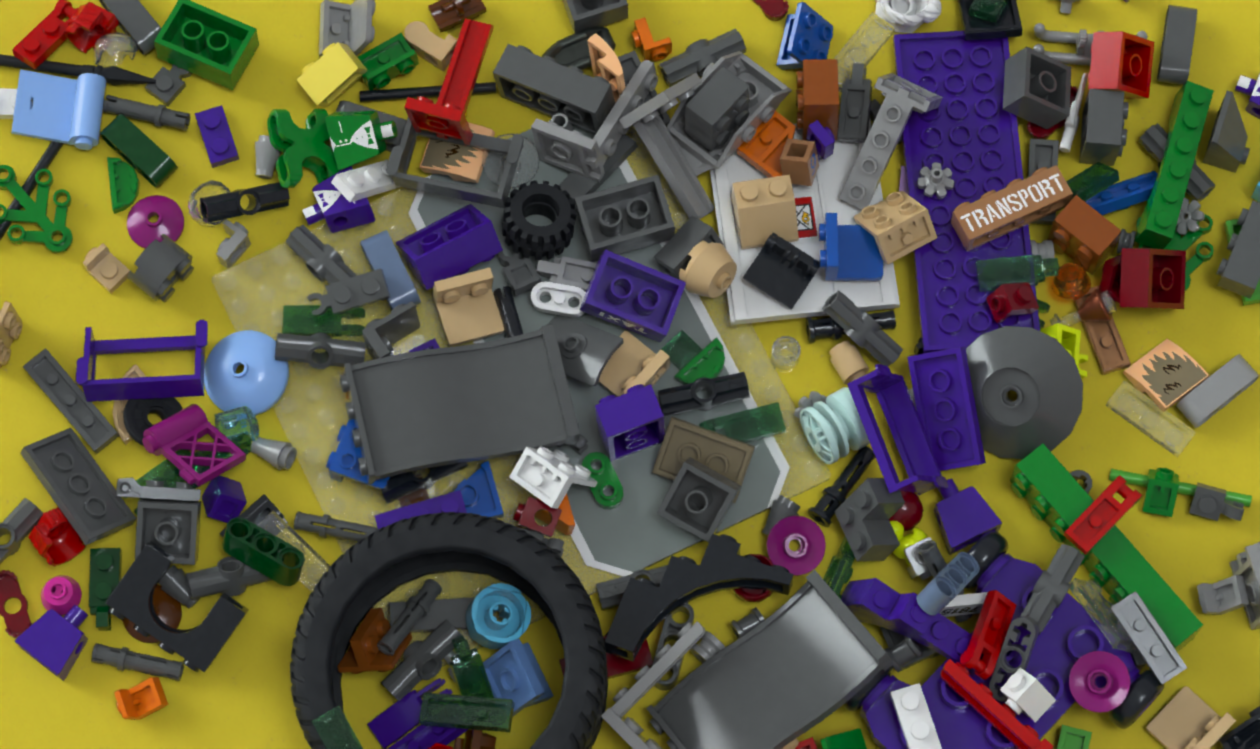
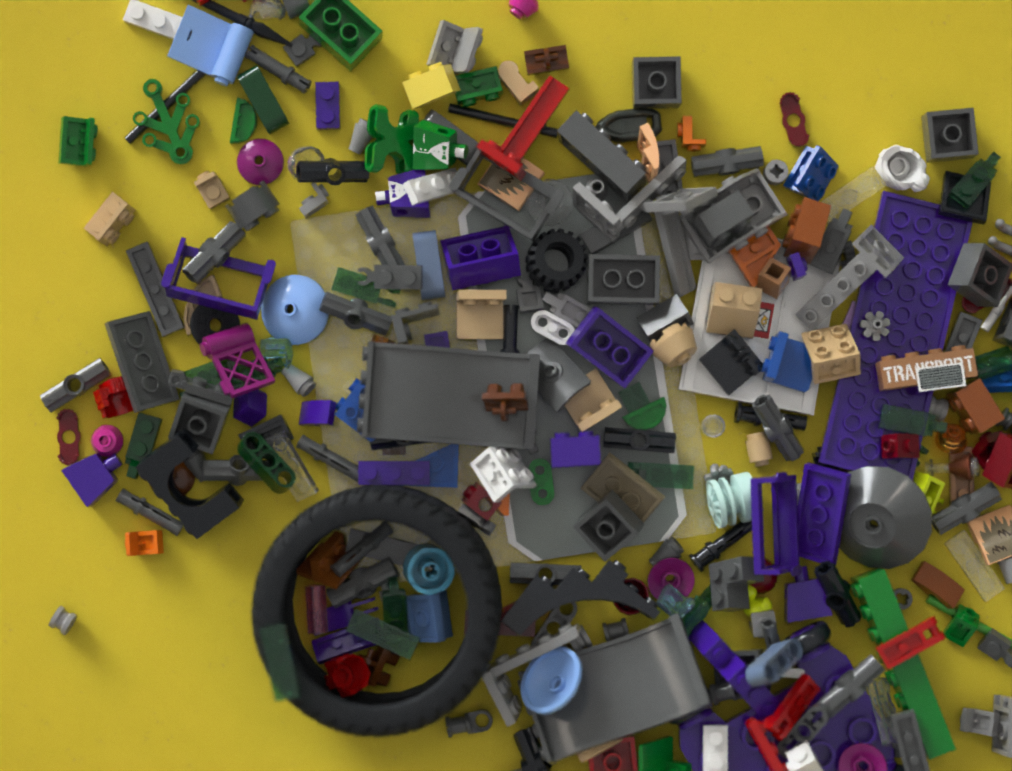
camera: 15 degrees right, 15 degrees up
(129, 335) = (213, 252): none -> dark grey piece
(307, 478) = (317, 413): none -> dark purple slope
(376, 710) = (316, 609): none -> clear pink axle
(529, 386) = (505, 403): none -> reddish brown hips
(688, 694) = (551, 680): none -> light blue dish
(762, 58) = (775, 177): none -> light grey wheel
(803, 563) = (674, 602): none -> clear light blue plate
(989, 483) = (837, 593): none -> black piece
(1030, 207) = (940, 377): none -> sticker
(1109, 449) = (936, 582): none -> dark orange slope
(1115, 353) = (965, 508): none -> dark grey piece

